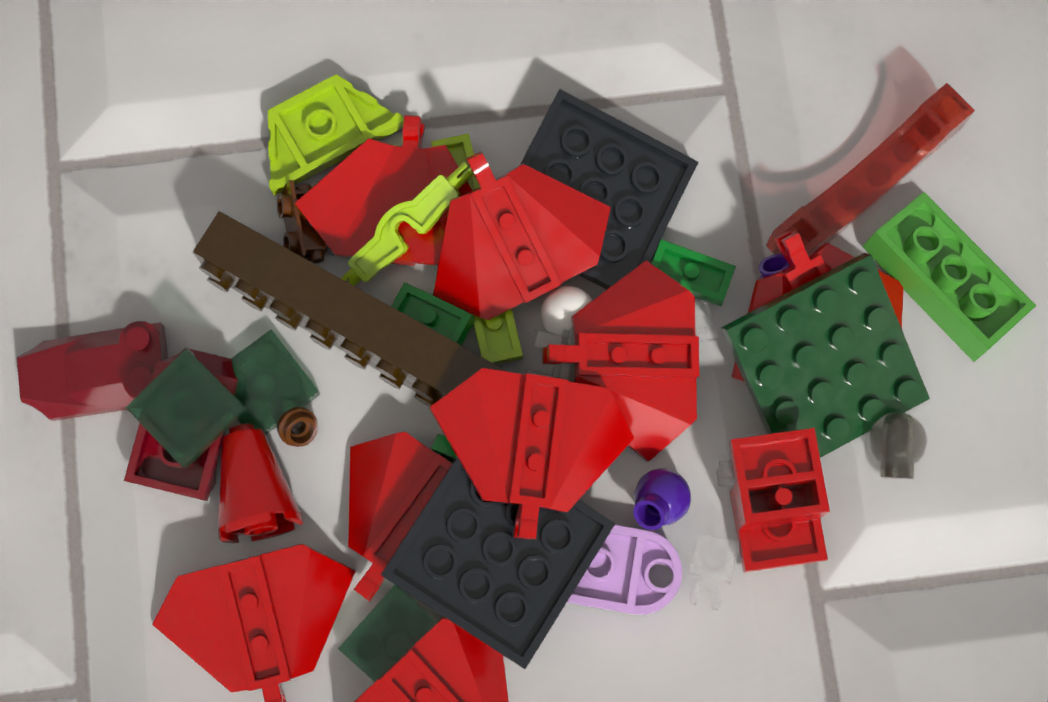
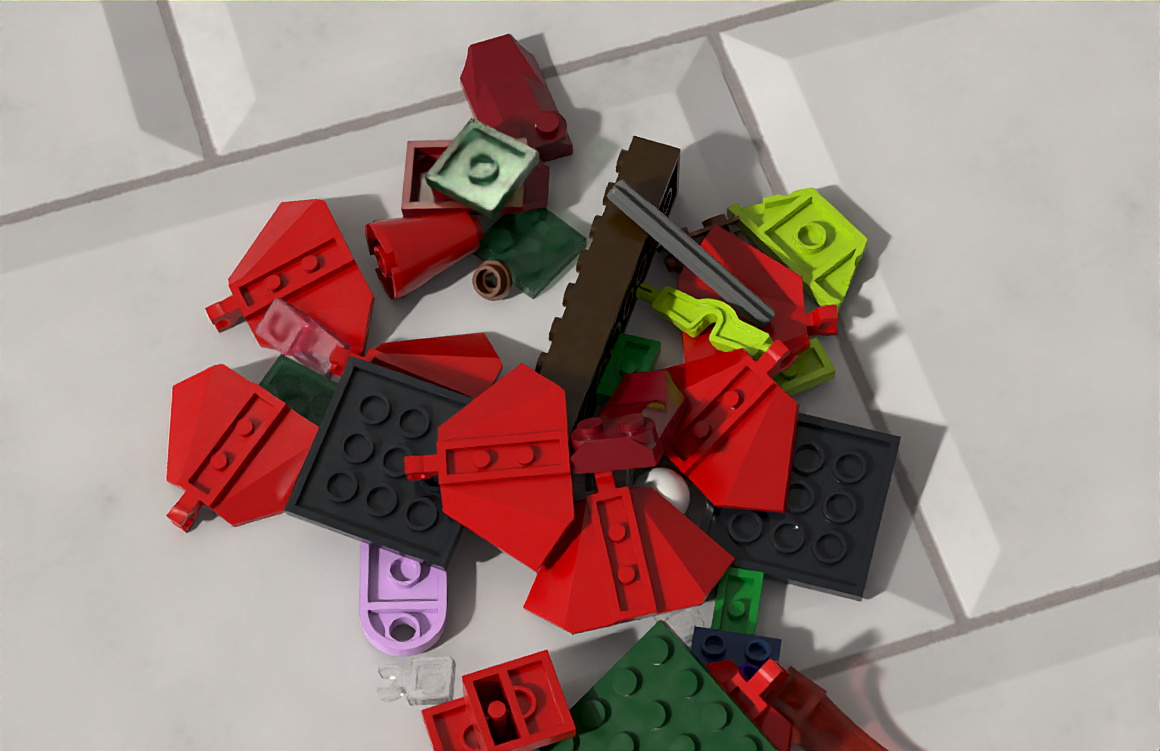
camera: 80 degrees right, 15 degrees down
(320, 626) = (299, 336): none -> clear pink slope
(335, 228) = (691, 254): none -> dark grey axle
(516, 318) = (631, 426): none -> dark red slope
(661, 498) = (480, 615): dark purple piece -> none
(736, 280) = (721, 645): none -> dark blue hinge

